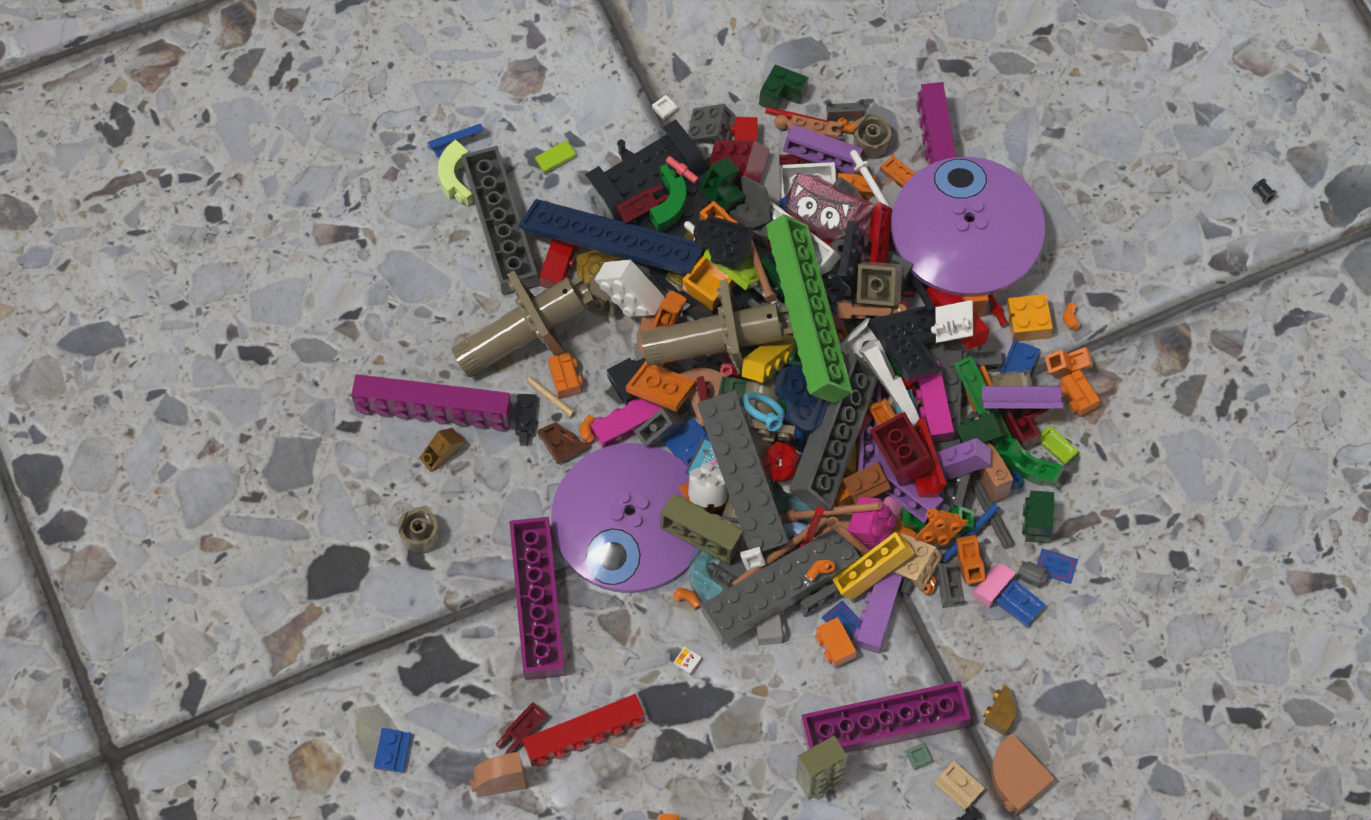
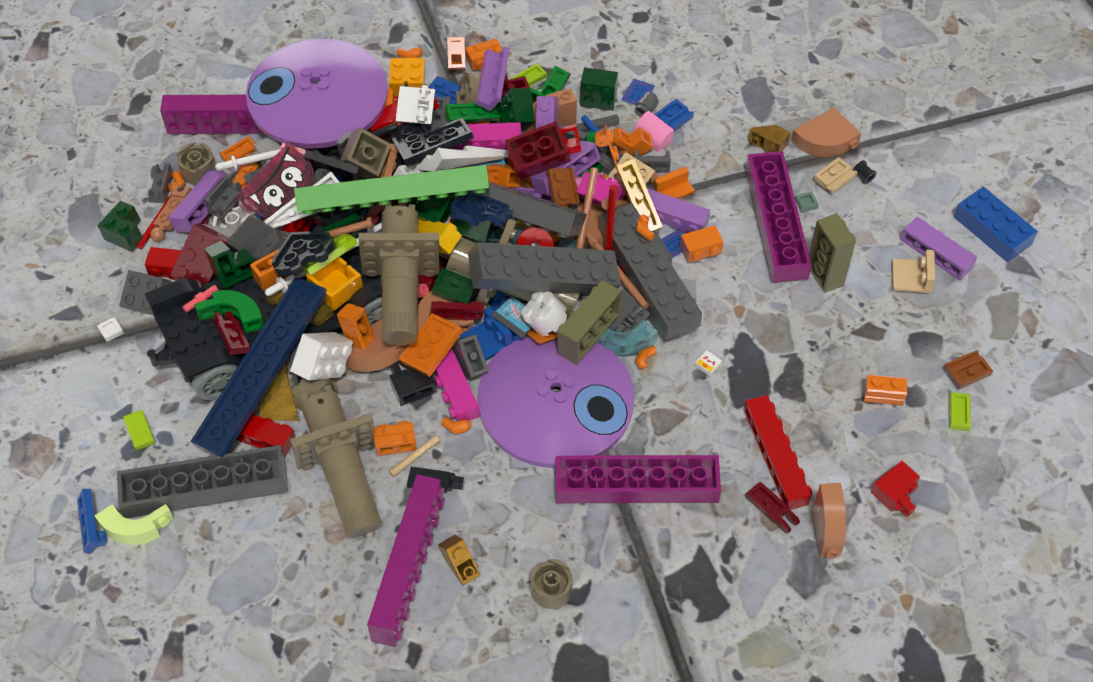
camera: 85 degrees left, 10 degrees down
(392, 750) = (790, 630): blue plate -> none
(561, 443) = (468, 448): copper wing -> none
(753, 558) = (624, 283): white tile -> none
(772, 421) = (501, 231): medium azure piece -> none
(816, 165) = (221, 200): none -> dark grey hinge
(917, 611) = (674, 184): none -> orange panel

